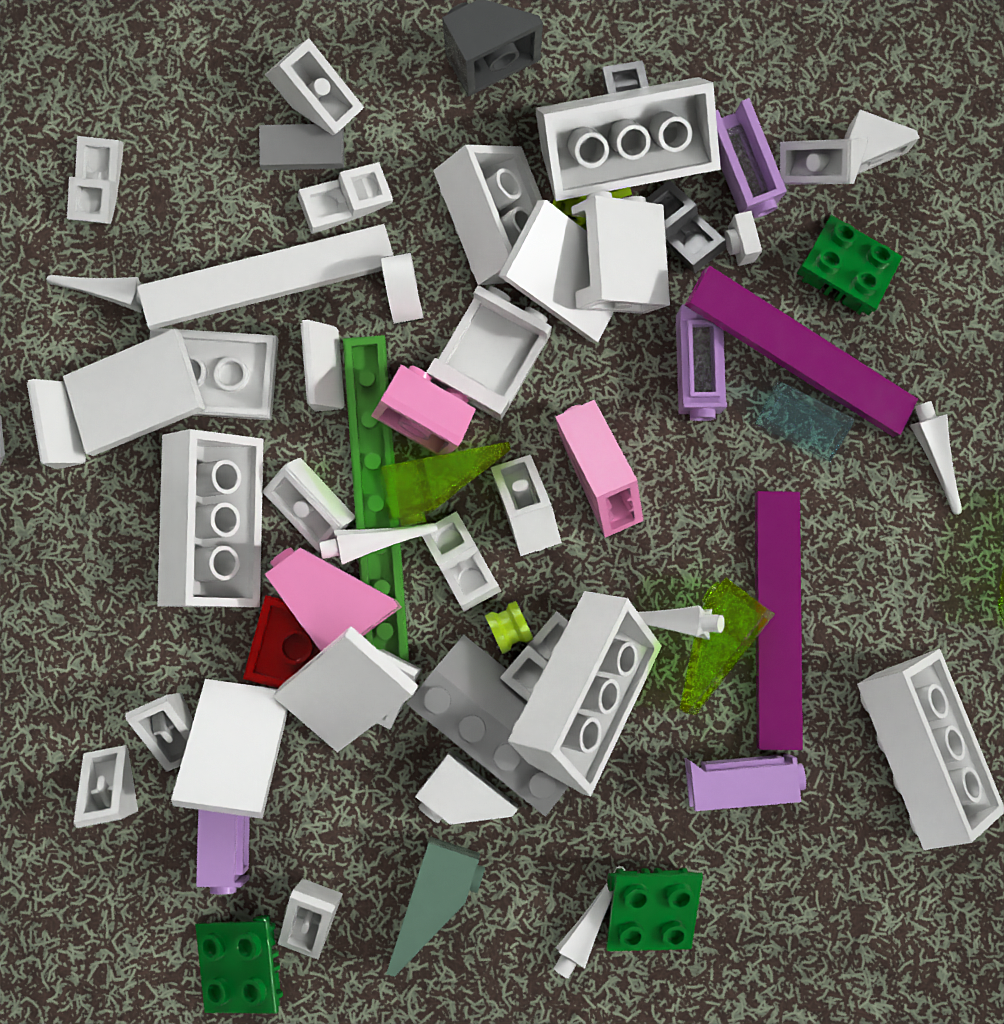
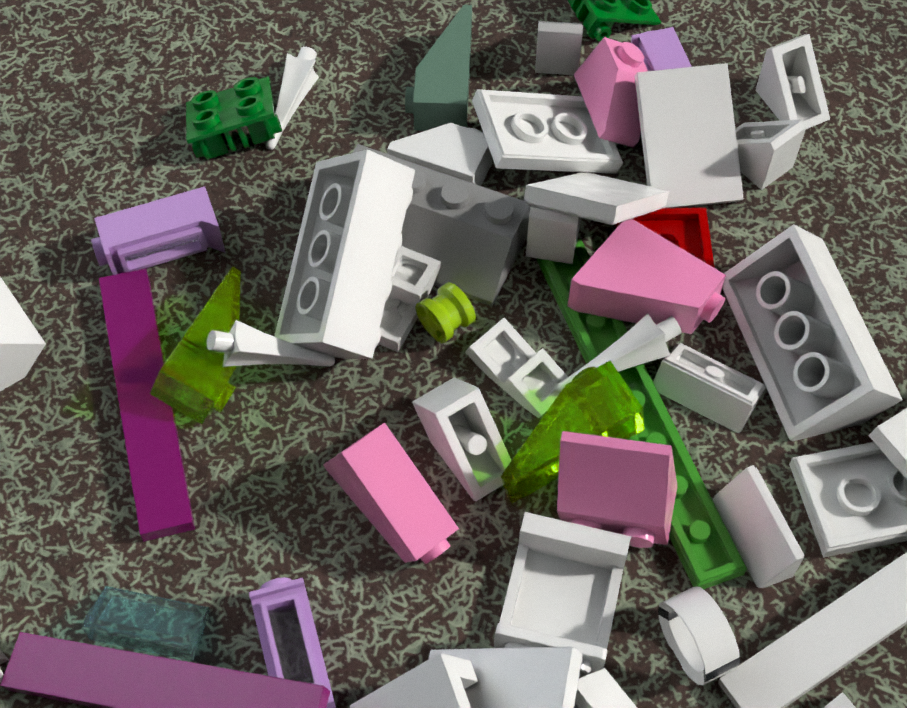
camera: 165 degrees right, 25 degrees down
(285, 833) = (610, 90): none -> bright pink slope
(361, 796) = (543, 133): none -> white tile

